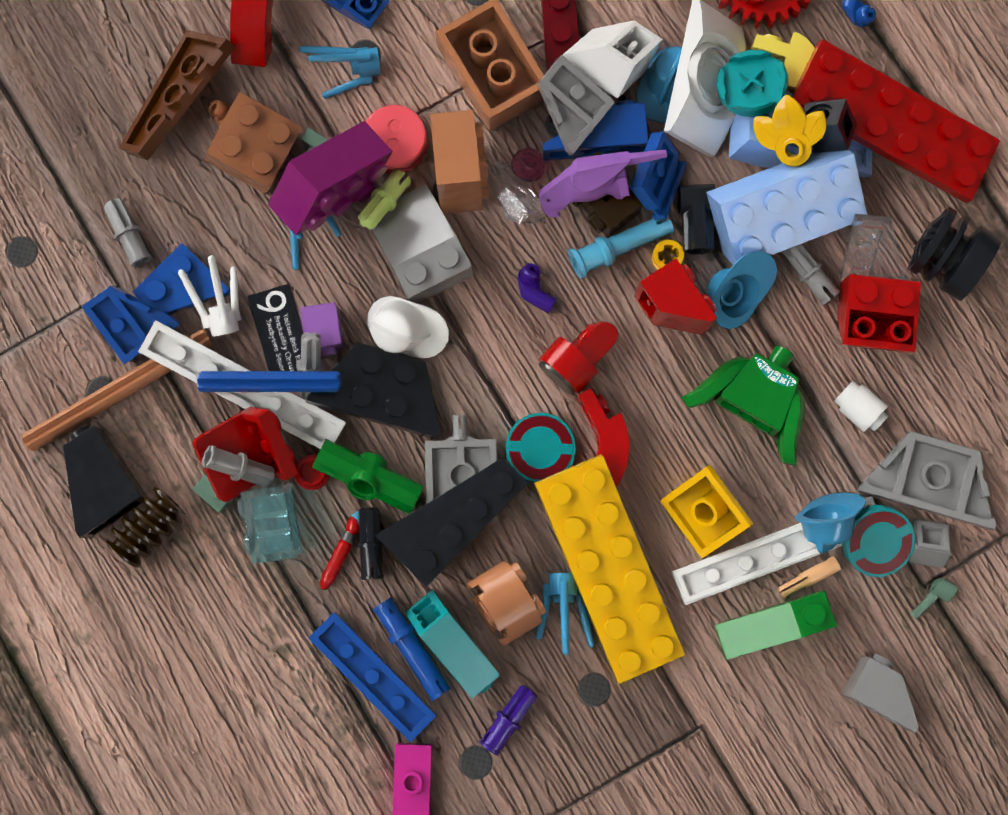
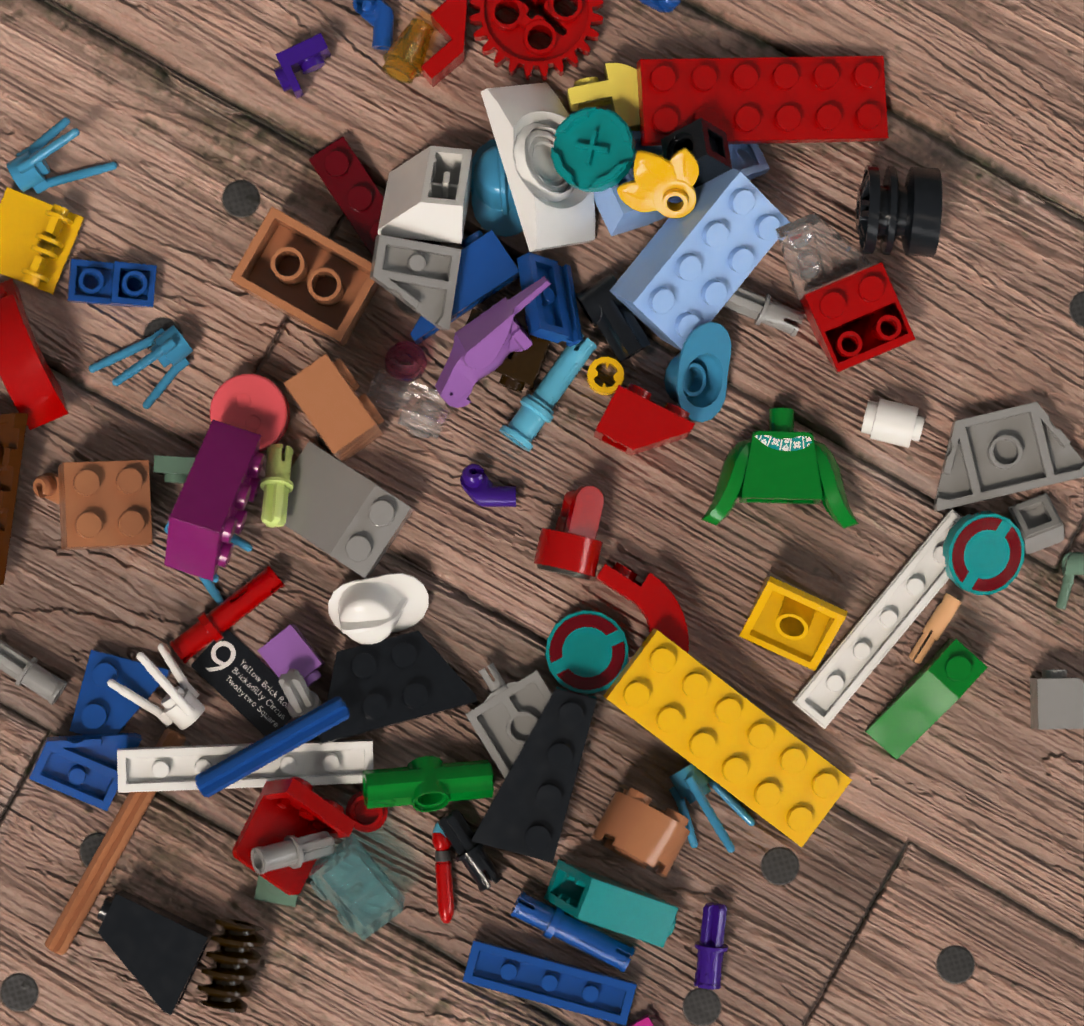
camera: 30 degrees left, 5 degrees up
(293, 272) = (225, 615): none -> red pin
(830, 519) = (922, 559): dark azure piece -> none

